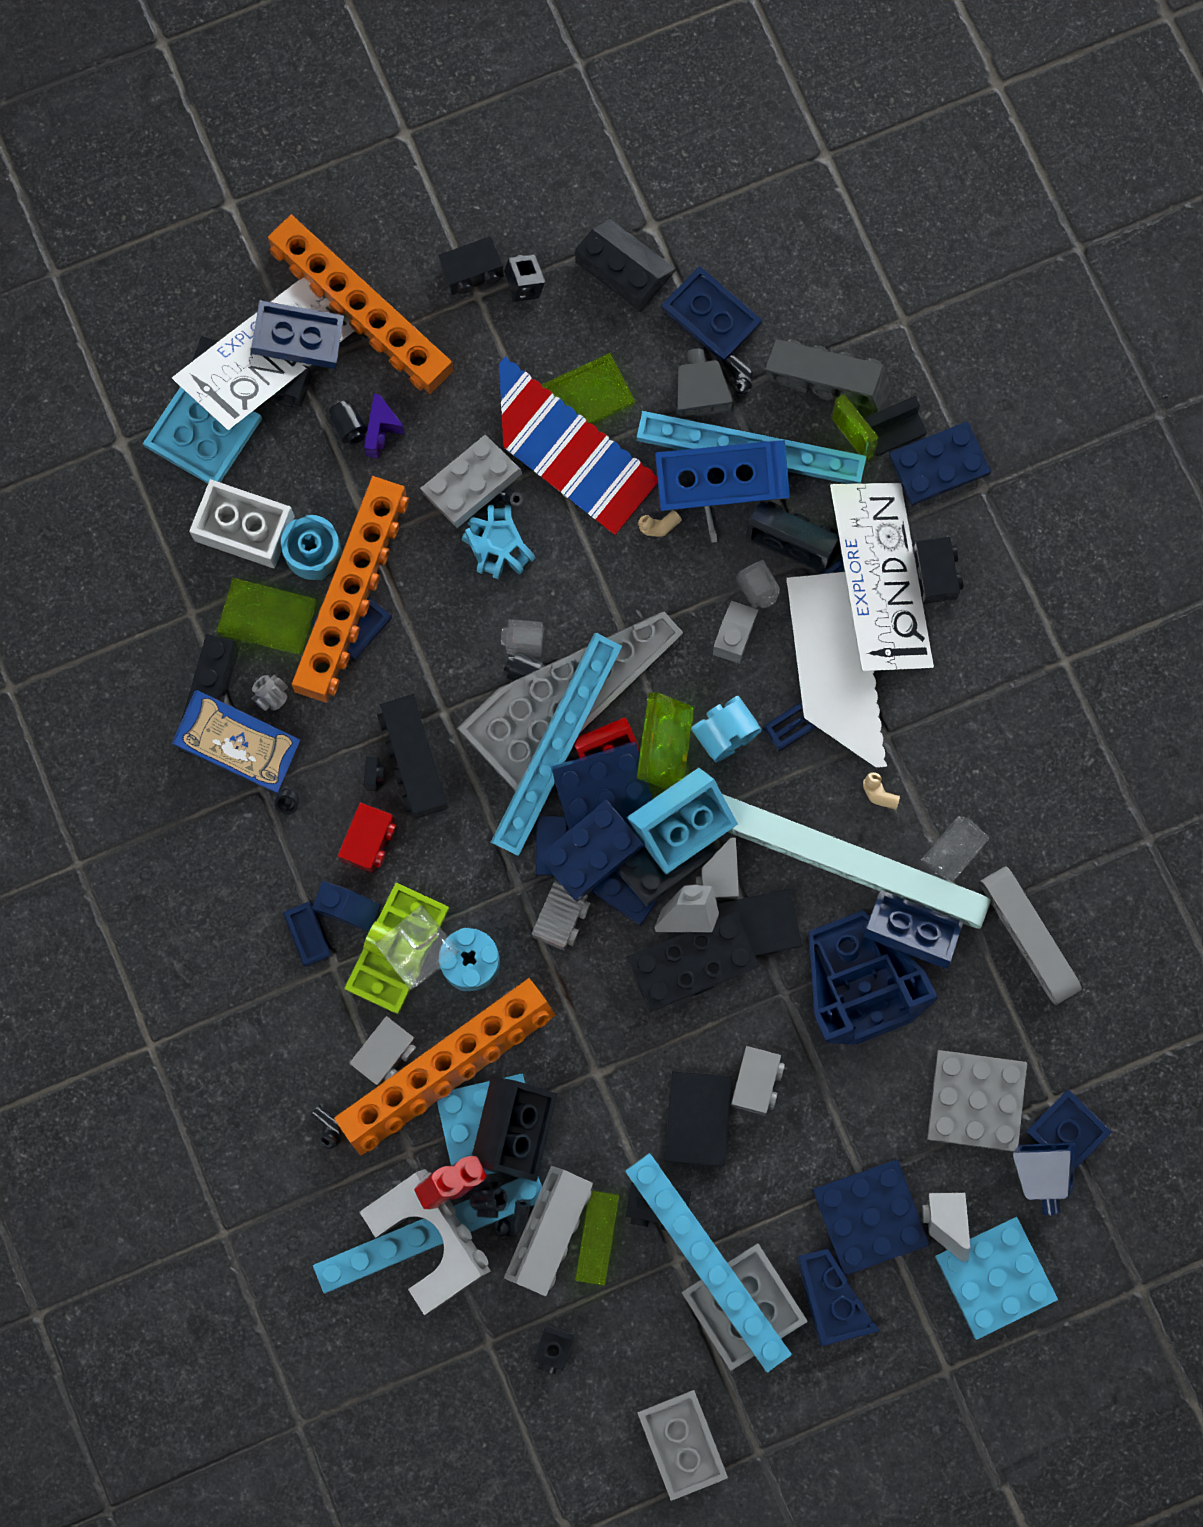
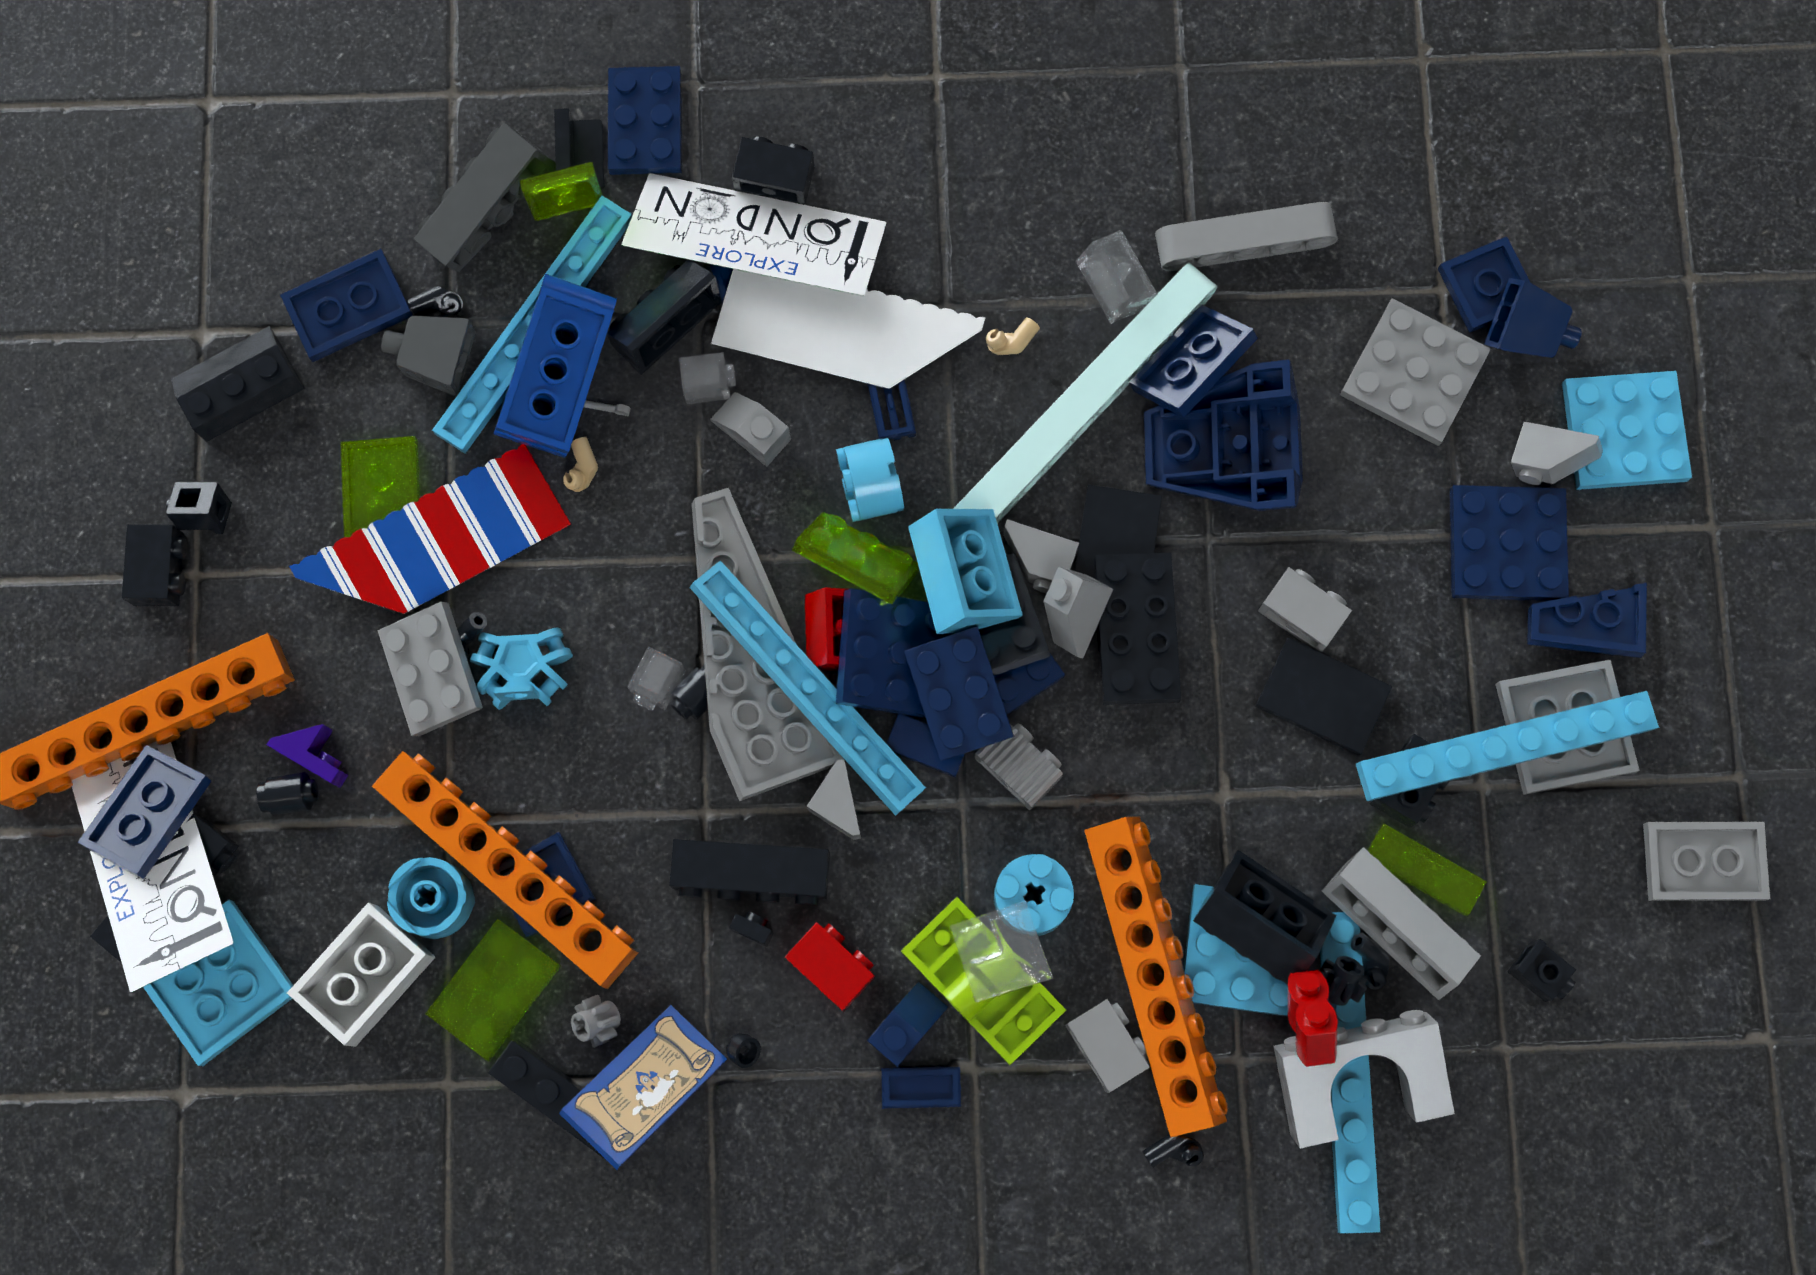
camera: 70 degrees left, 0 degrees up
(484, 797) = (835, 803): none -> light grey slope

